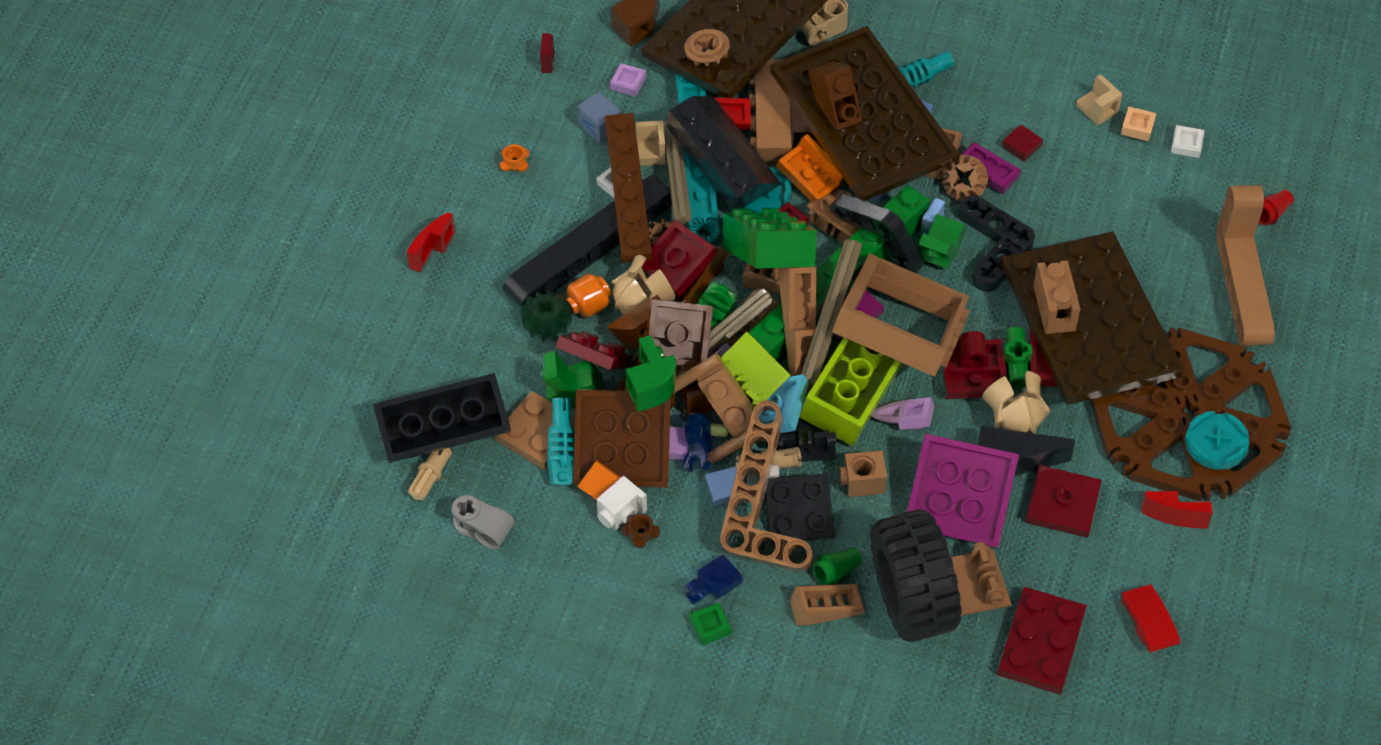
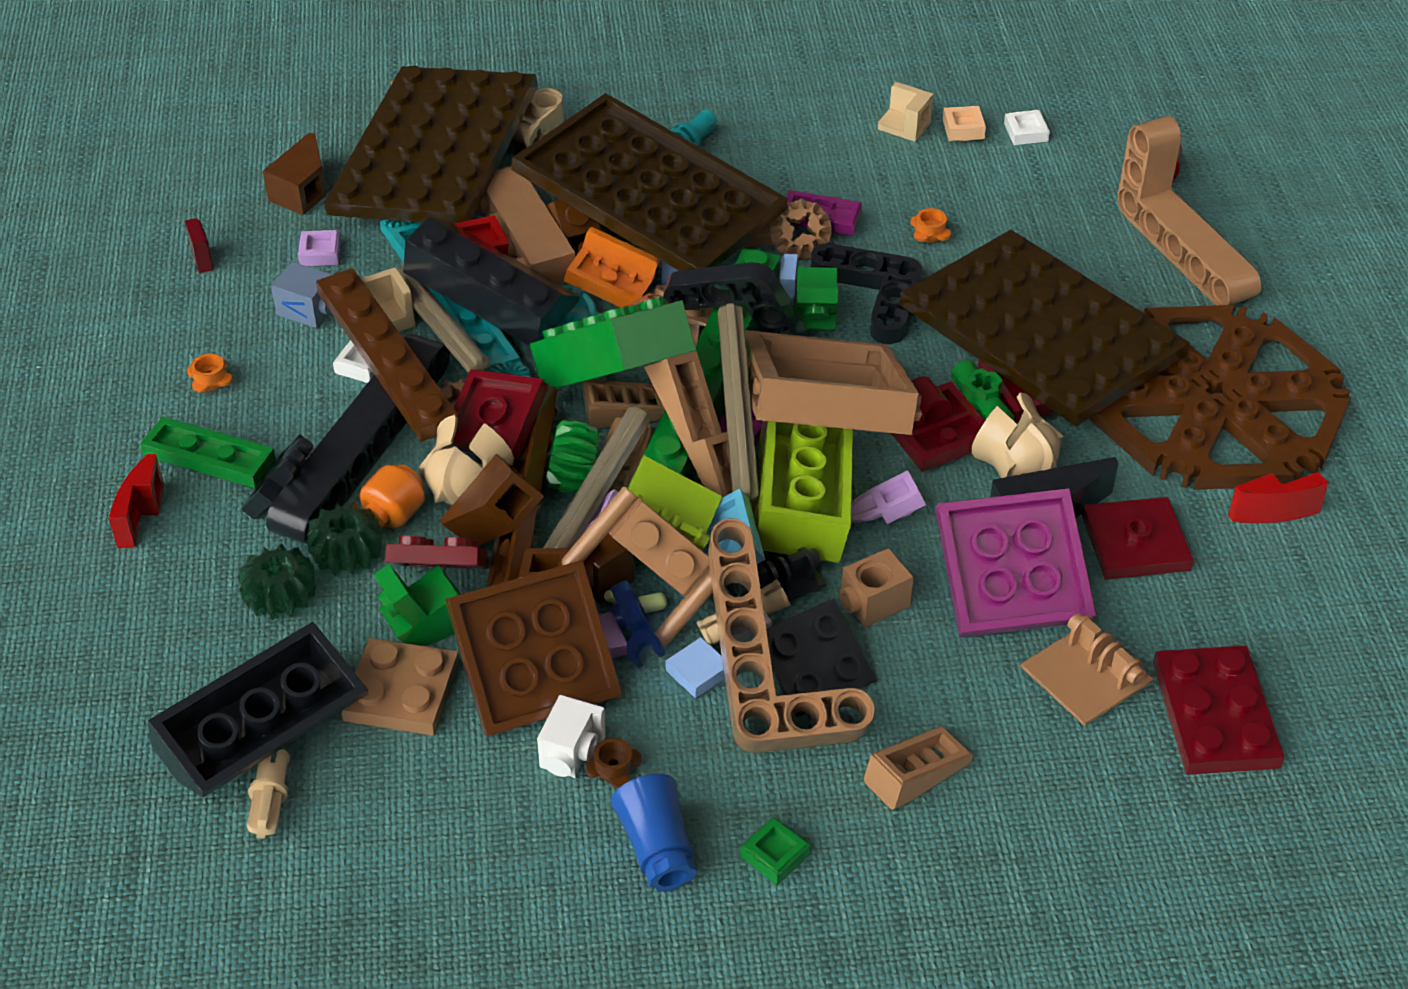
camera: 25 degrees left, 10 degrees down
(482, 522) = (383, 831): light grey piece -> none
(489, 220) = (208, 452): none -> green plate
(492, 331) = (277, 581): none -> clear green gear
(524, 254) = (278, 476): none -> black hinge
(561, 443) = (448, 686): teal hinge -> none
(598, 480) = (523, 717): orange tile -> none
(642, 584) = (656, 830): none -> blue plant
(654, 379) = (549, 542): green brick -> none
(680, 330) = (550, 490): reddish brown plate -> none
(705, 39) = (401, 170): medium nougat gear -> none
(715, 578) = (748, 788): clear blue plate -> none
(834, 566) = (903, 713): green cone -> none
(836, 93) = (612, 163): reddish brown slope -> none
(915, 575) = (1036, 672): black tyre -> none
(1022, 143) = (843, 179): dark red tile -> none
(1054, 292) = (1002, 304): medium nougat brick -> none
(1065, 199) = (930, 225): none -> orange plate
(1151, 618) = (1337, 635): red slope -> none
(1217, 440) = (1275, 406): teal tile -> none

